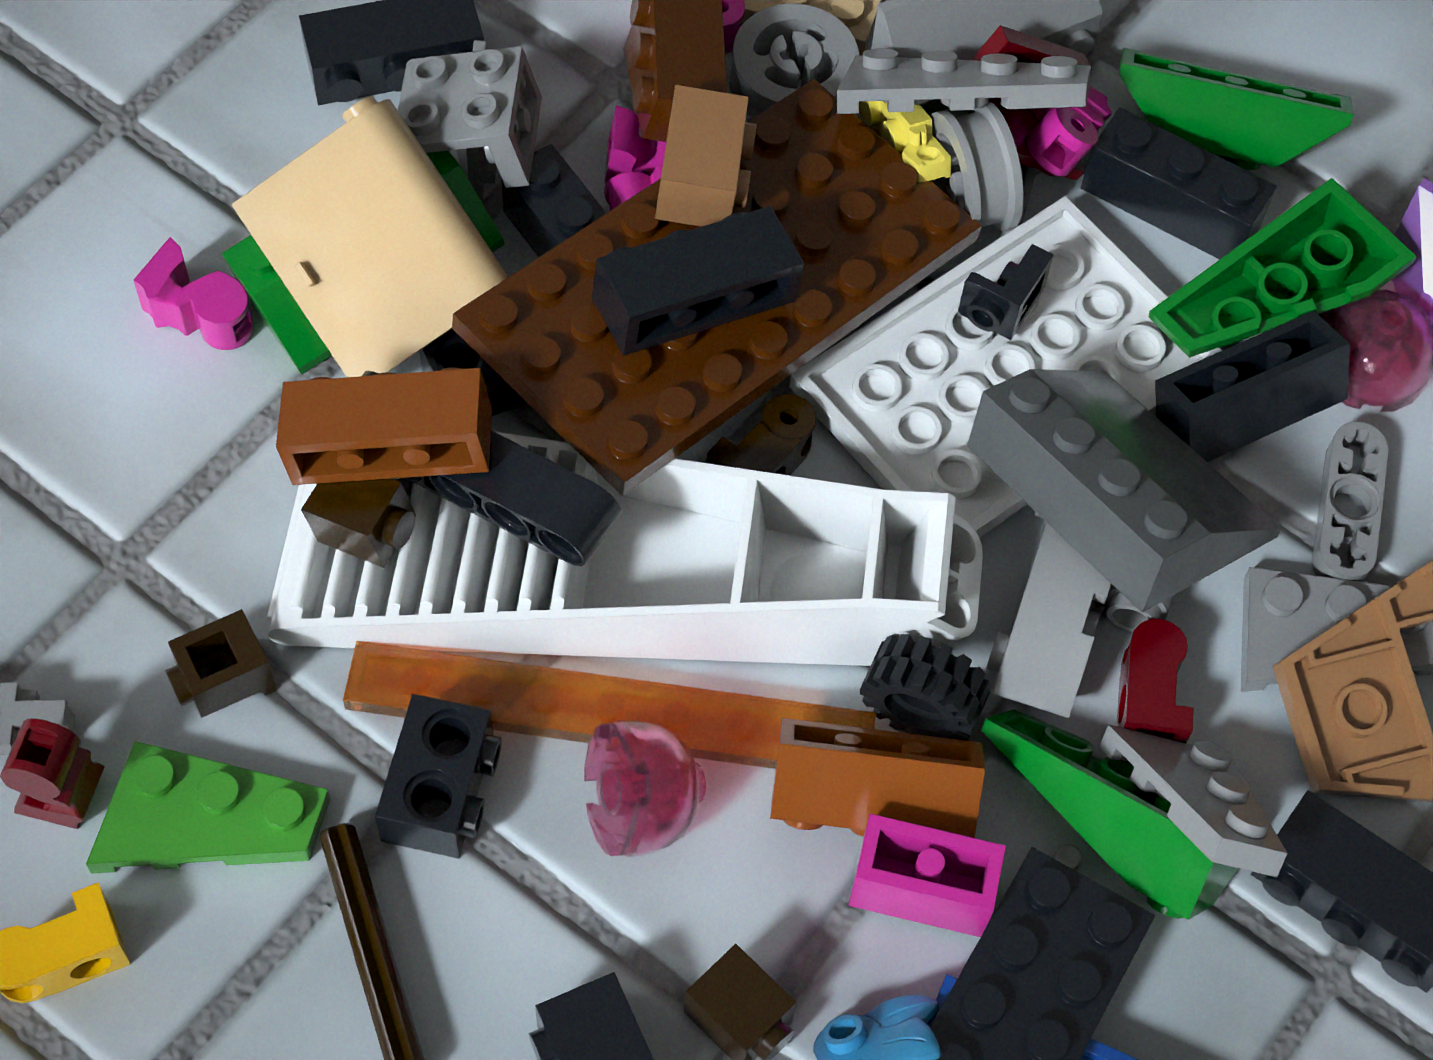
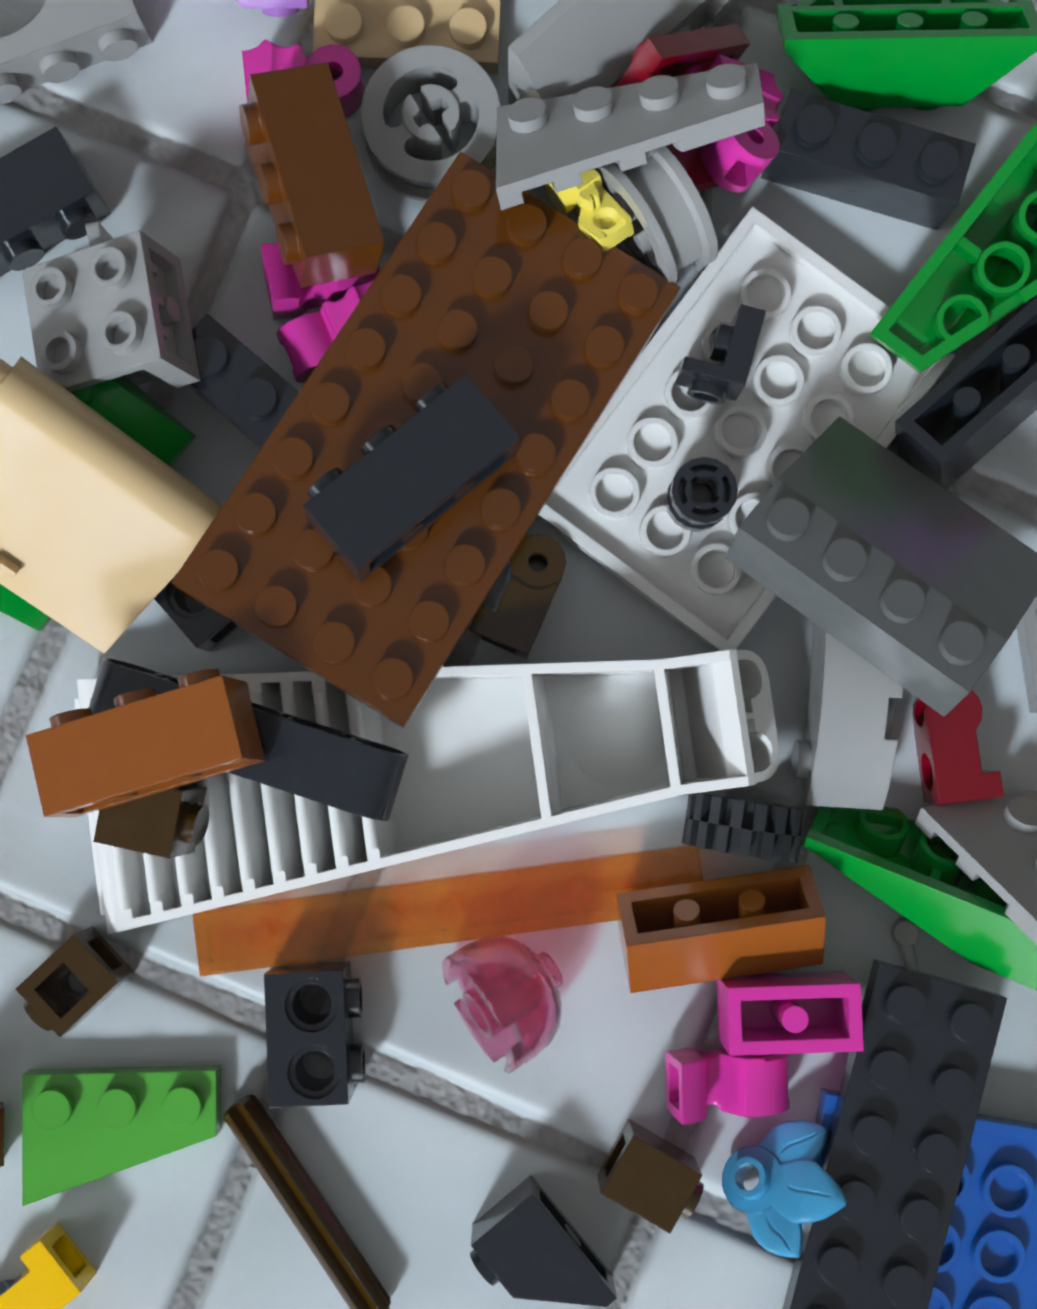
camera: 15 degrees left, 25 degrees up
(704, 157) = (376, 316): medium nougat brick -> none
(858, 942) = (733, 1083): none -> dark pink leg
(955, 392) = (691, 503): none -> black wheel

